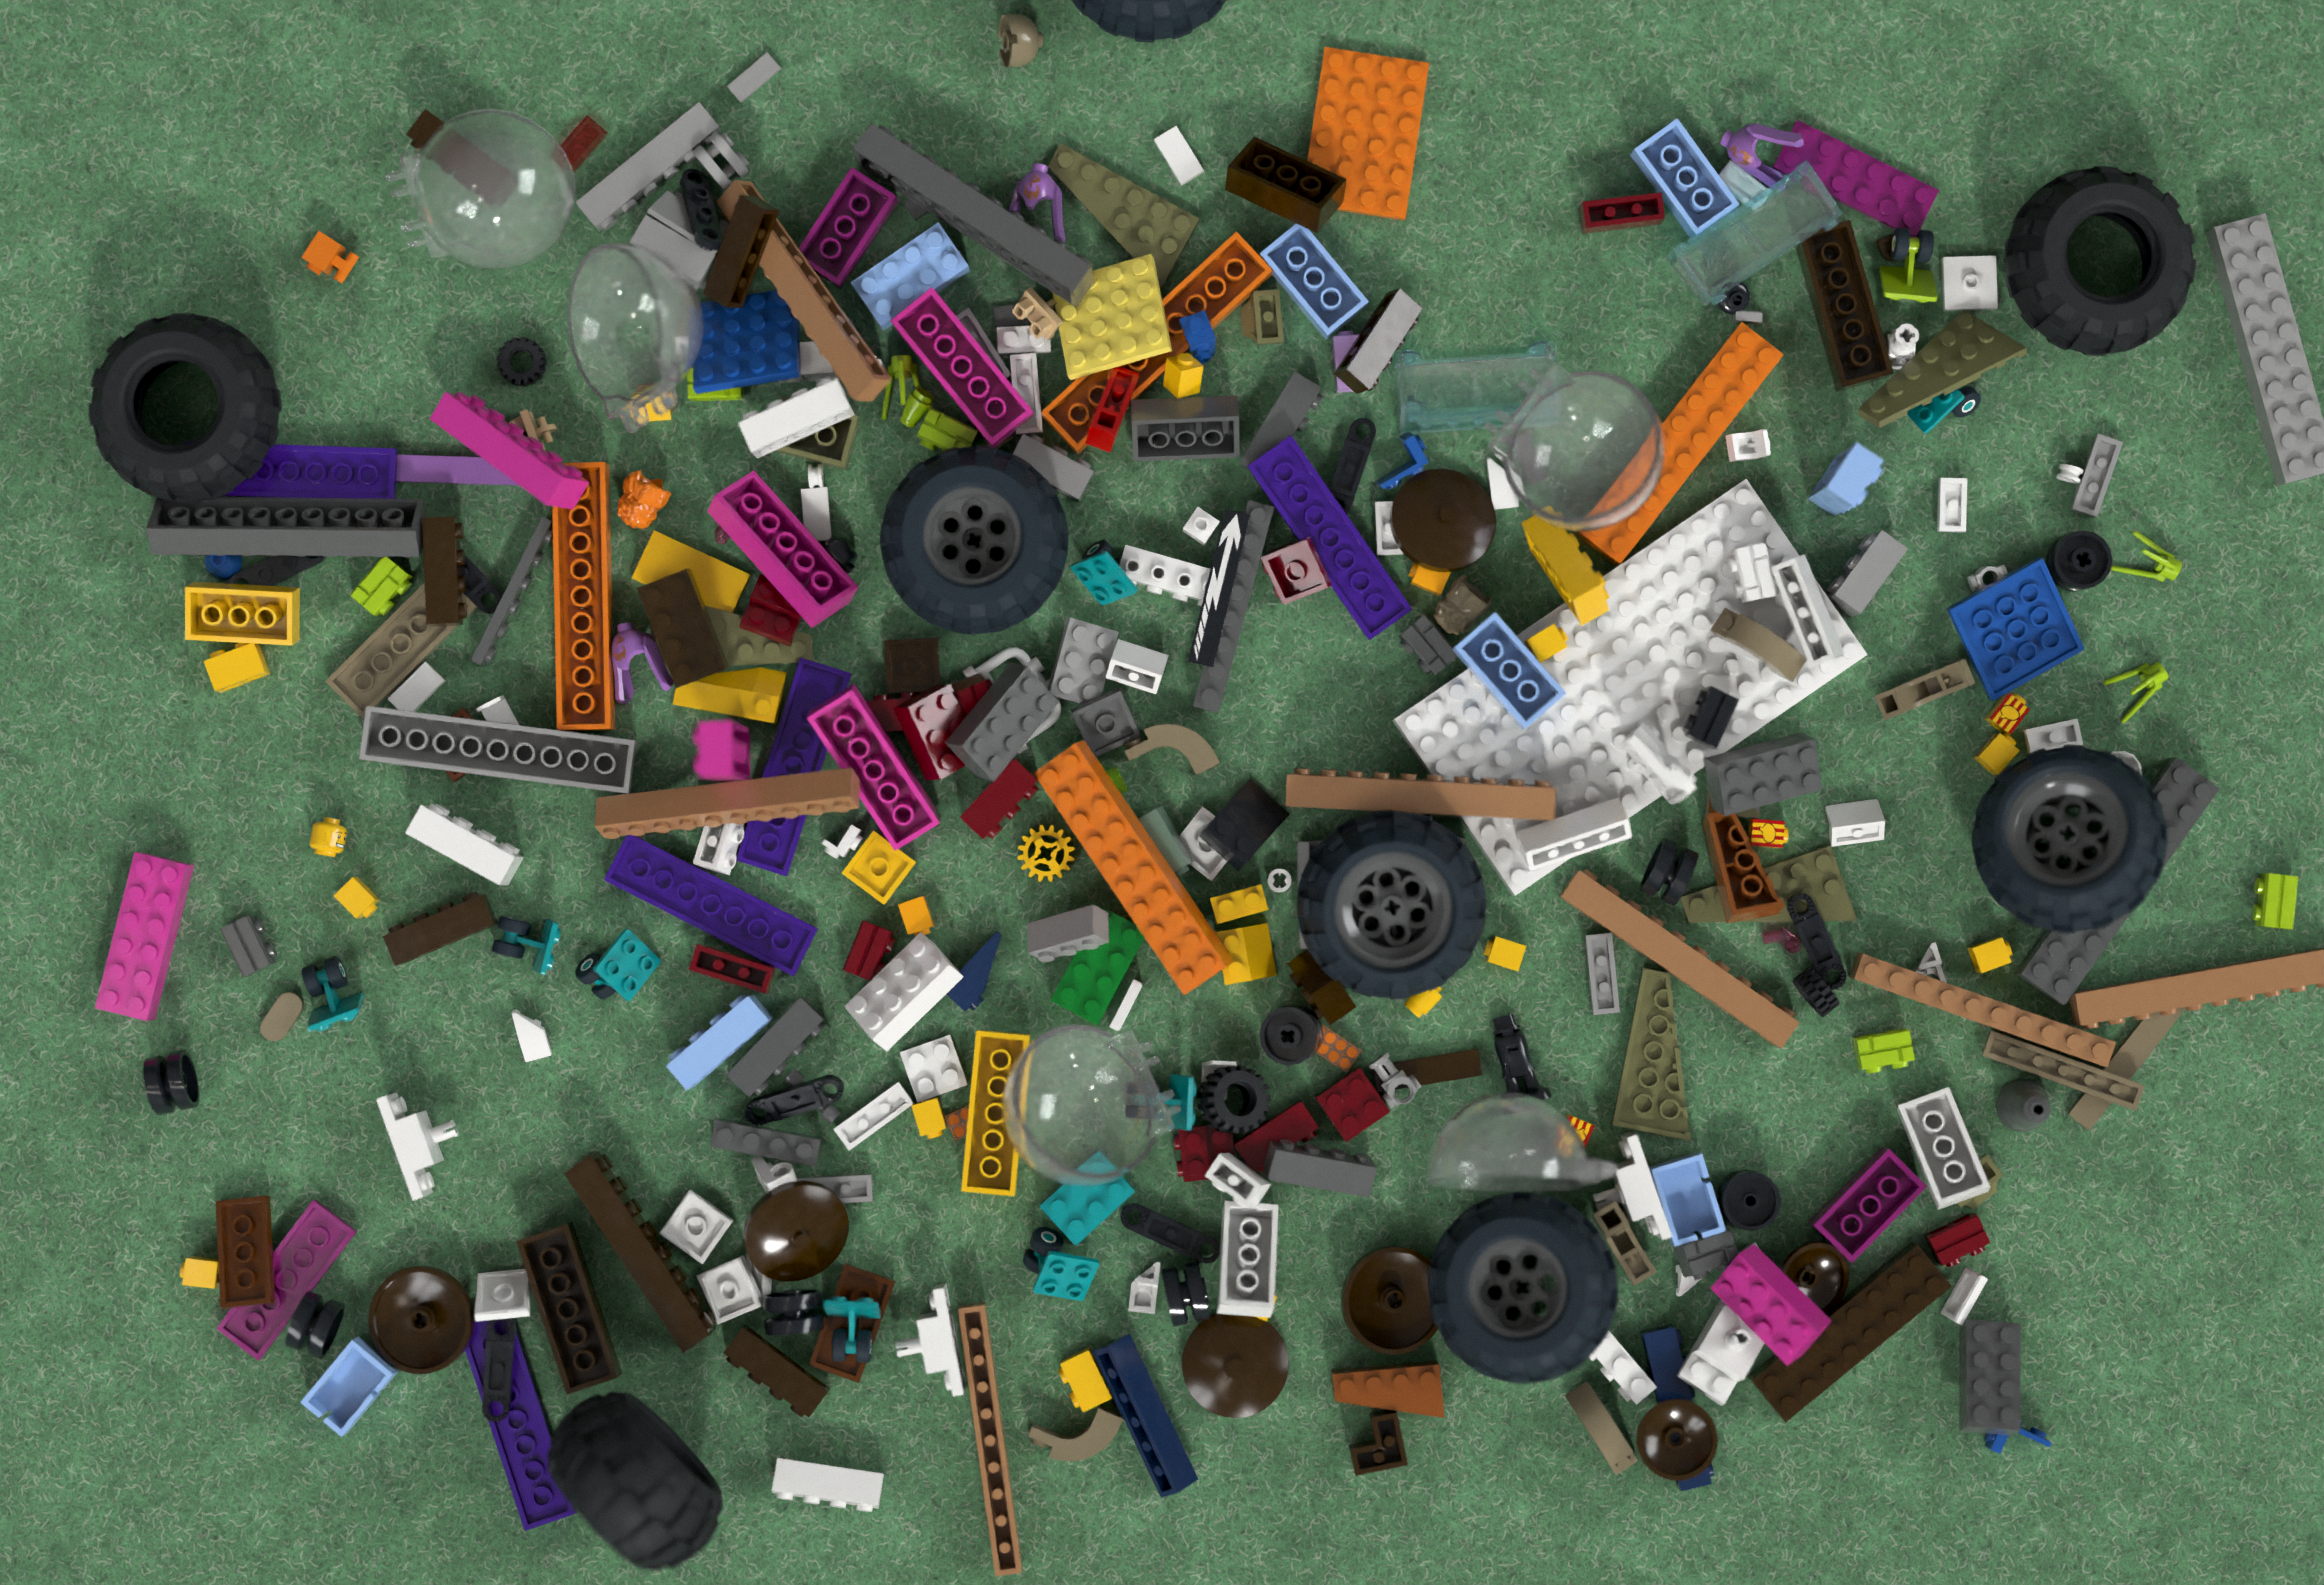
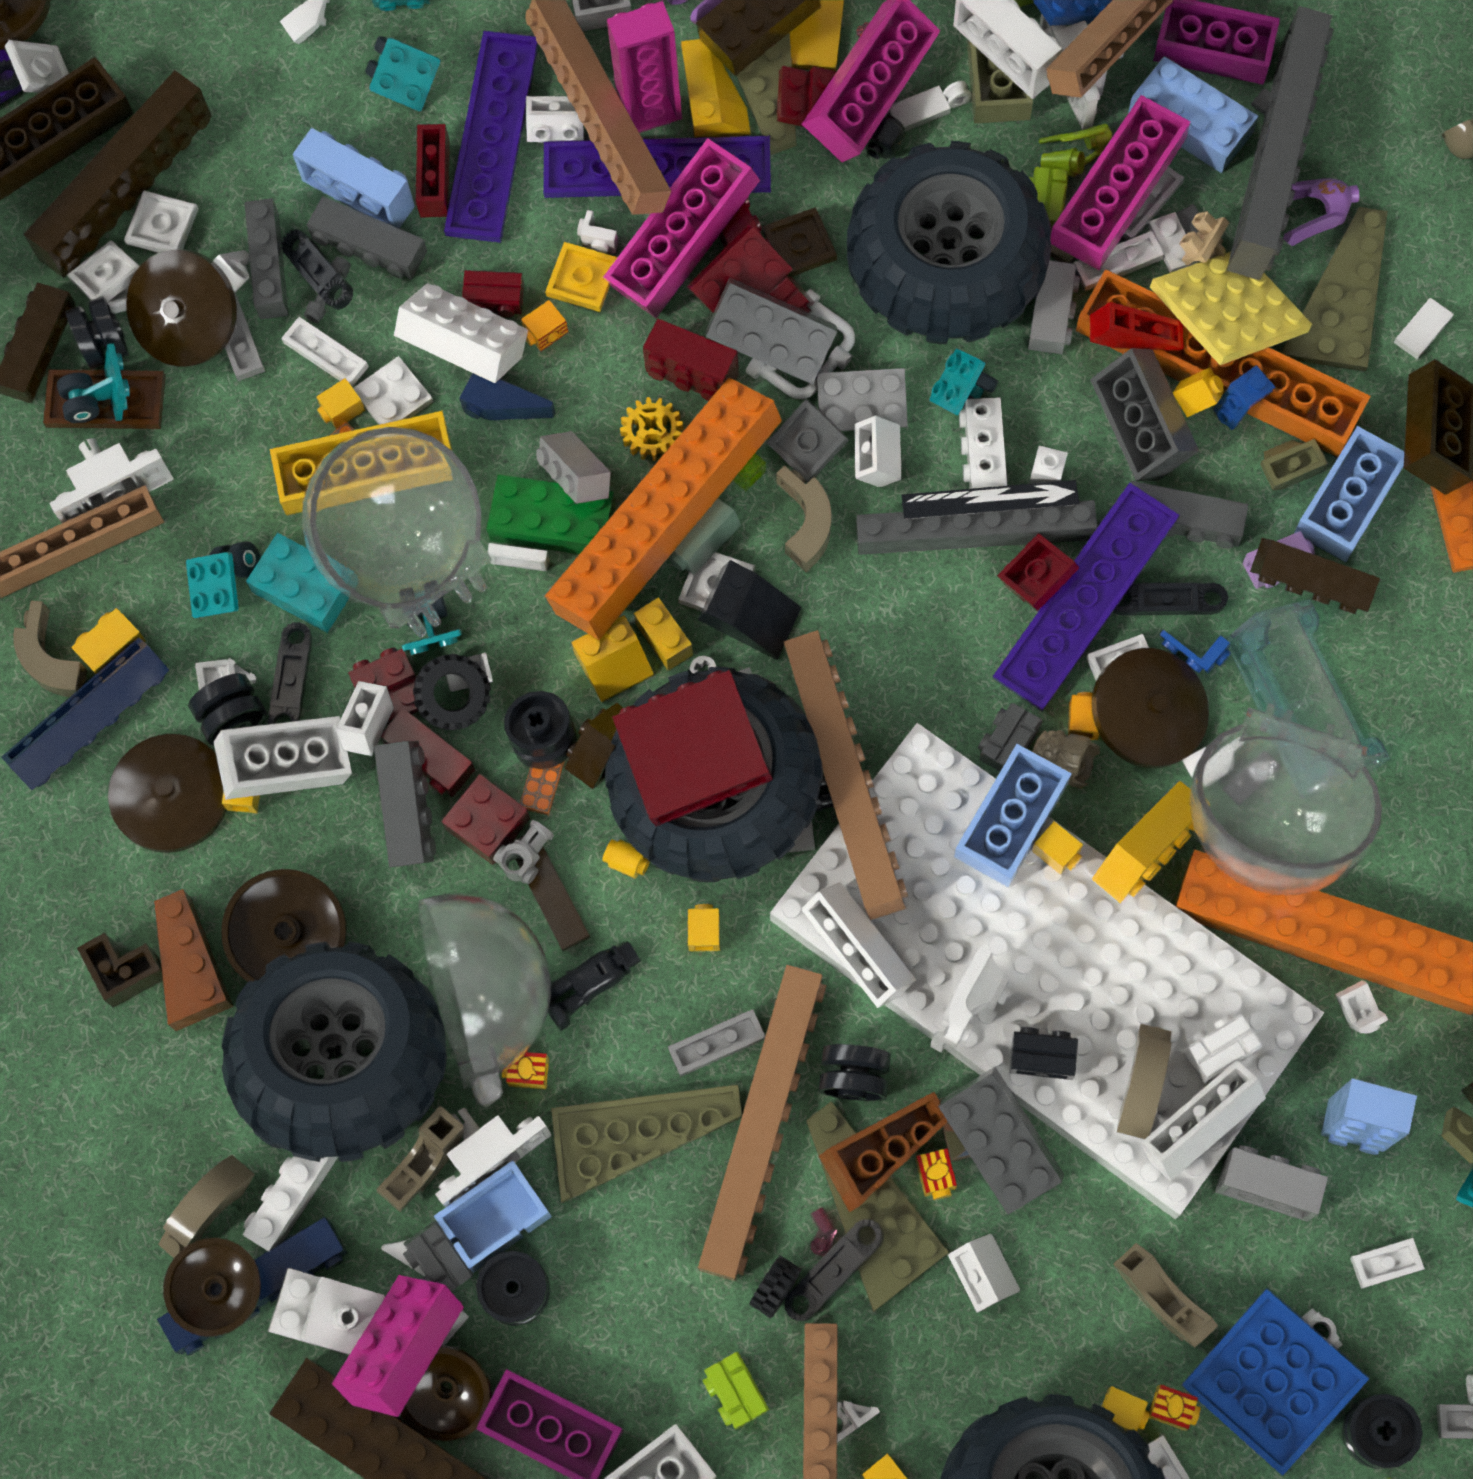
camera: 80 degrees right, 15 degrees down
(1384, 919) = (691, 747): none -> dark red panel

